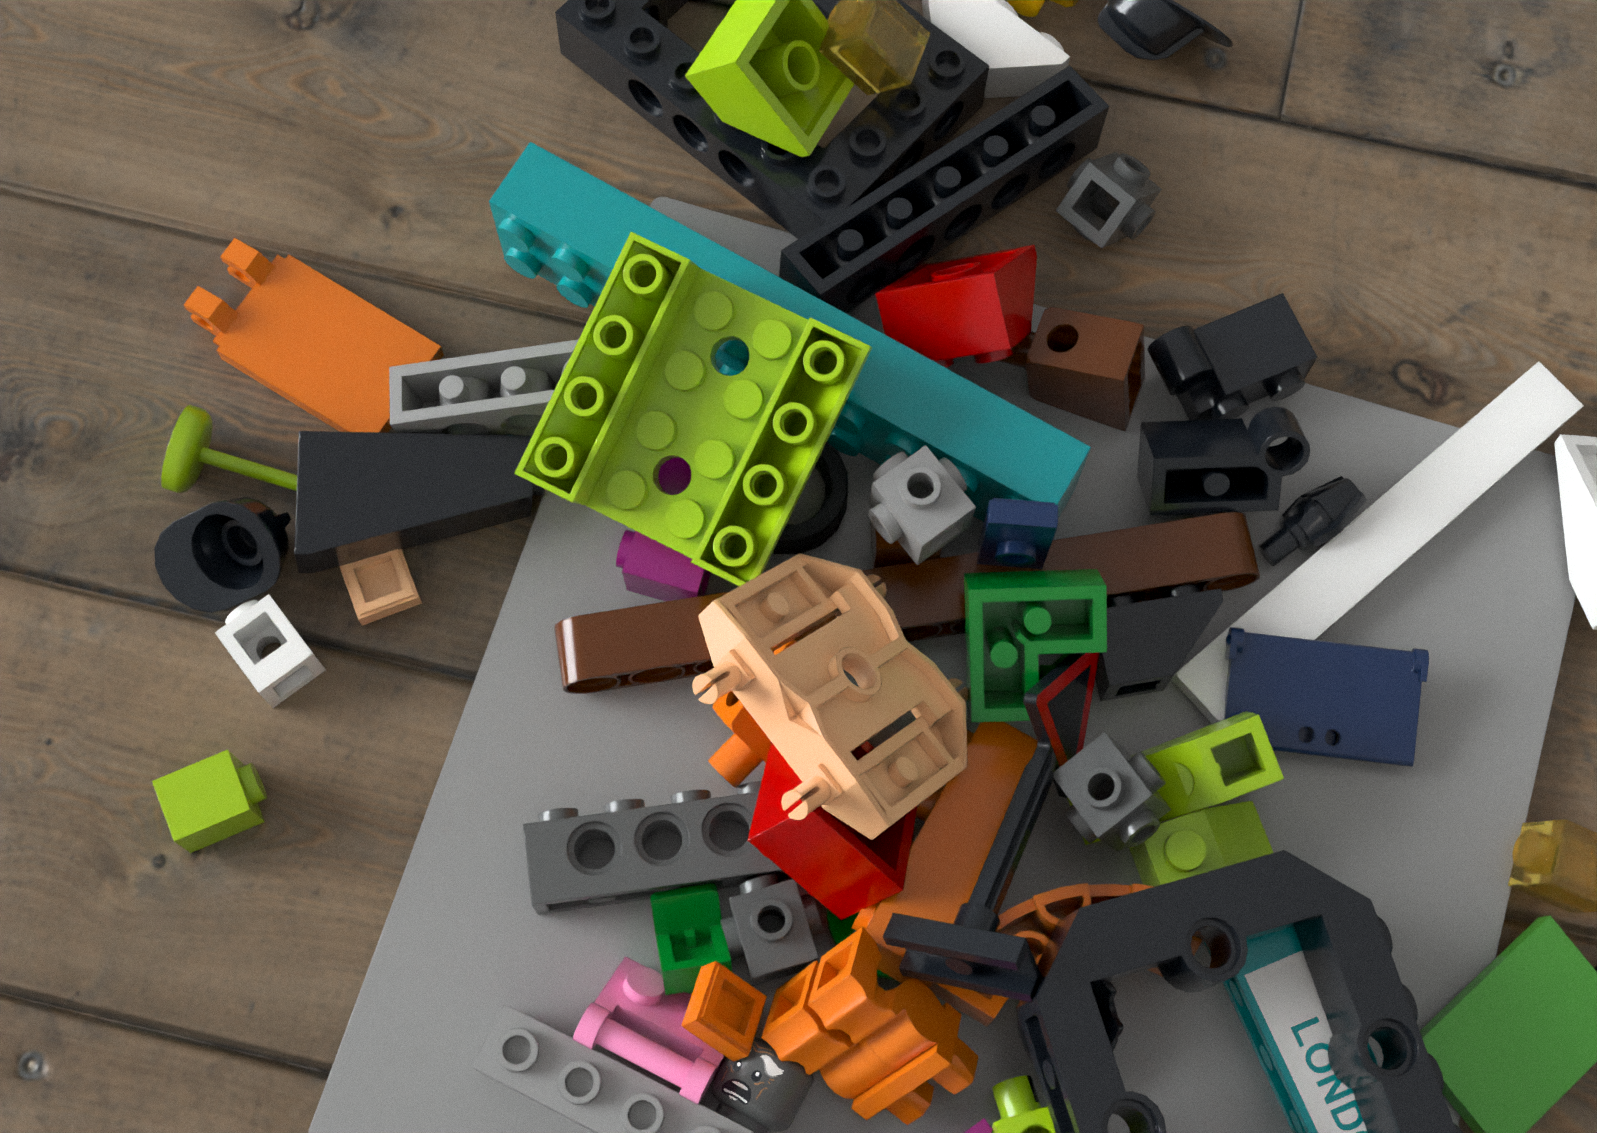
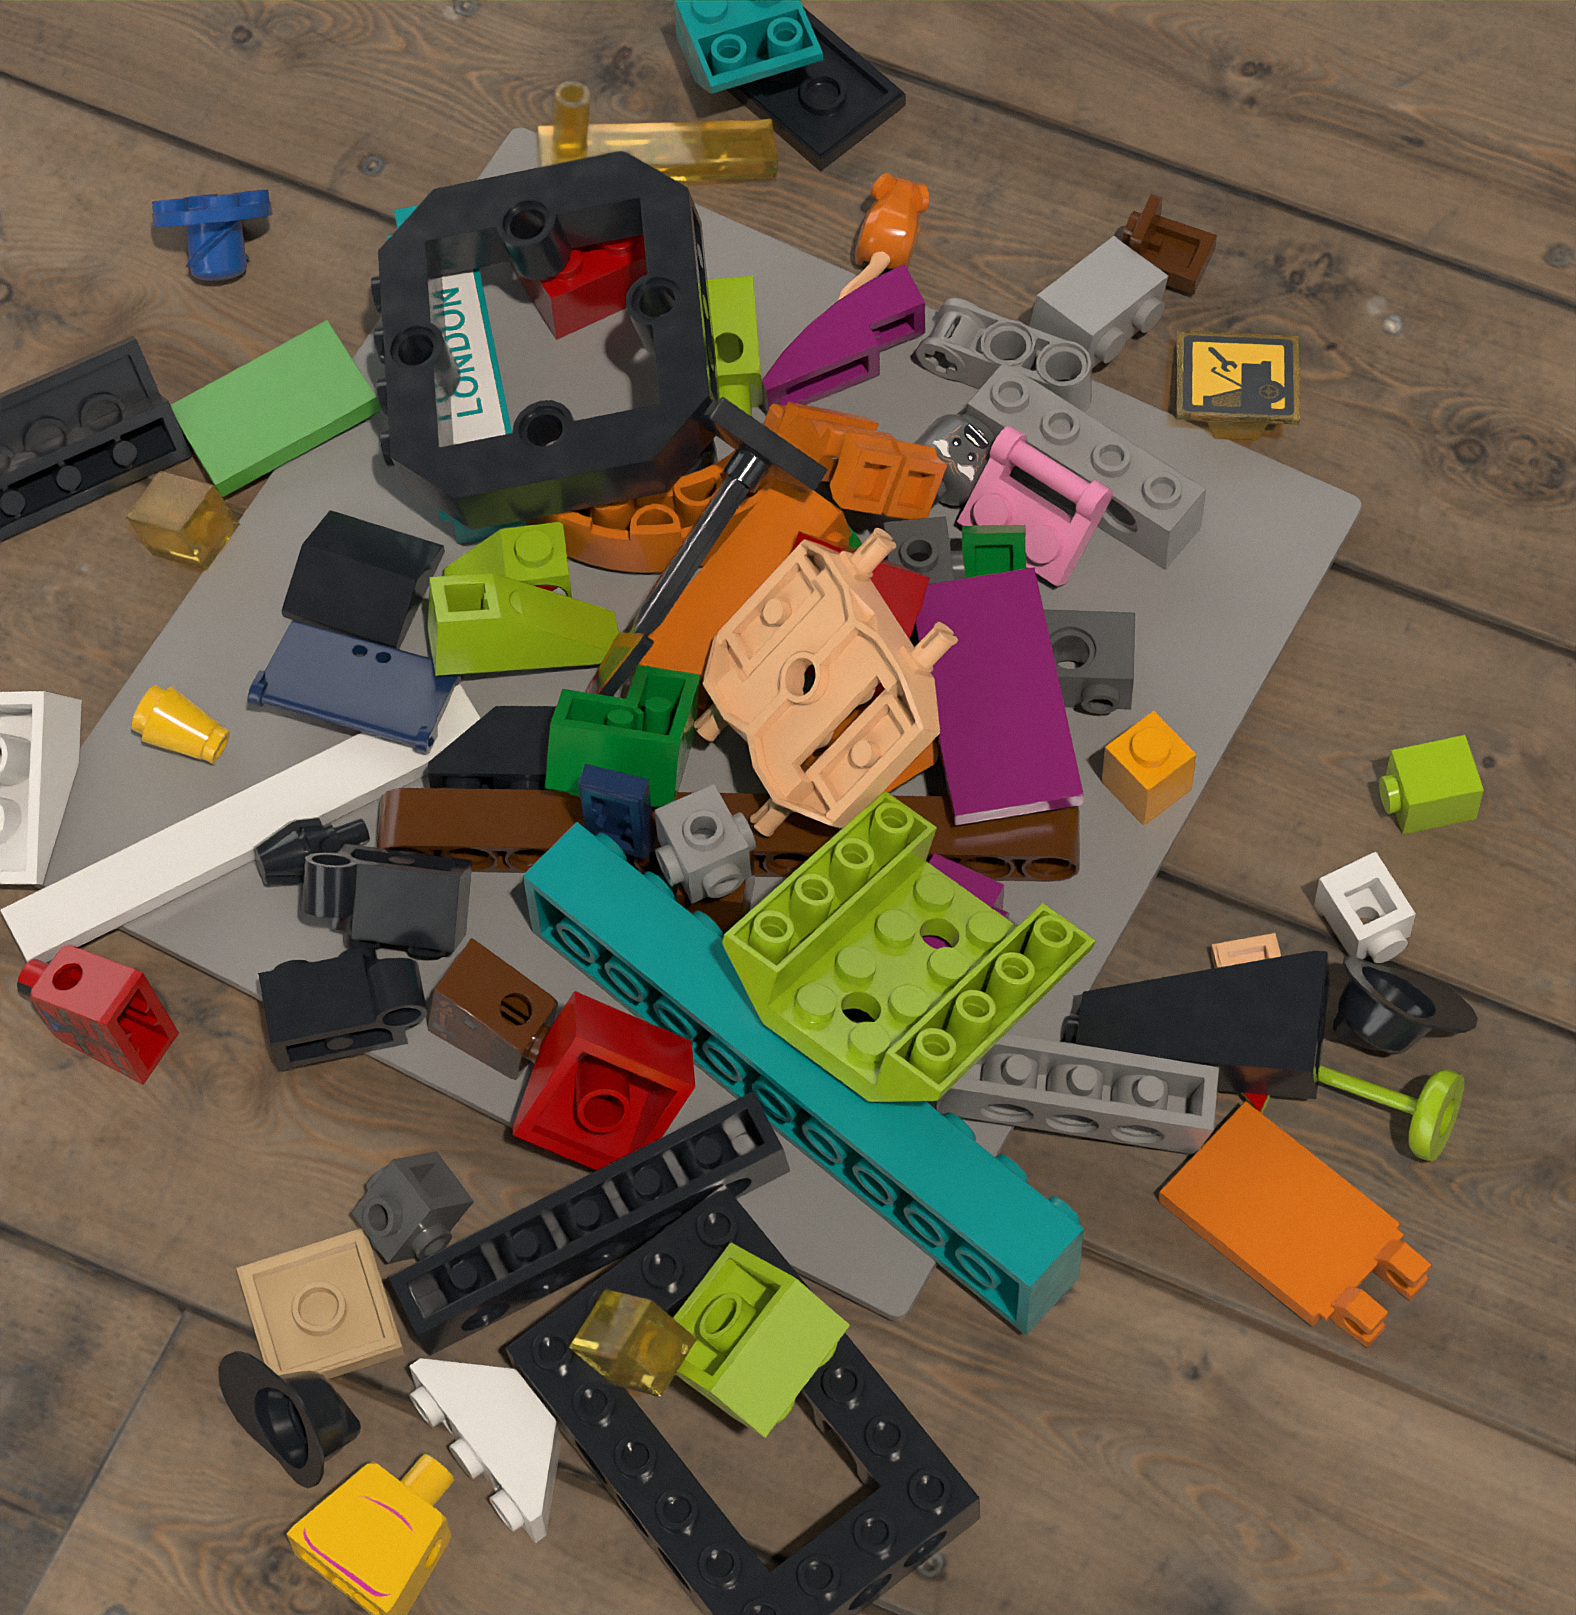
camera: 165 degrees left, 10 degrees down
(497, 742) = (1148, 768): none -> light orange brick
(661, 761) = (999, 699): none -> magenta tile
(724, 1011) = (975, 493): orange tile -> none
(1112, 794) = (587, 593): dark grey brick -> none
(1170, 123) = (321, 1308): none -> tan tile
(1364, 832) = (361, 579): none -> black slope
(1455, 326) = (100, 1010): none -> red torso
(1485, 624) = (179, 725): none -> yellow cone

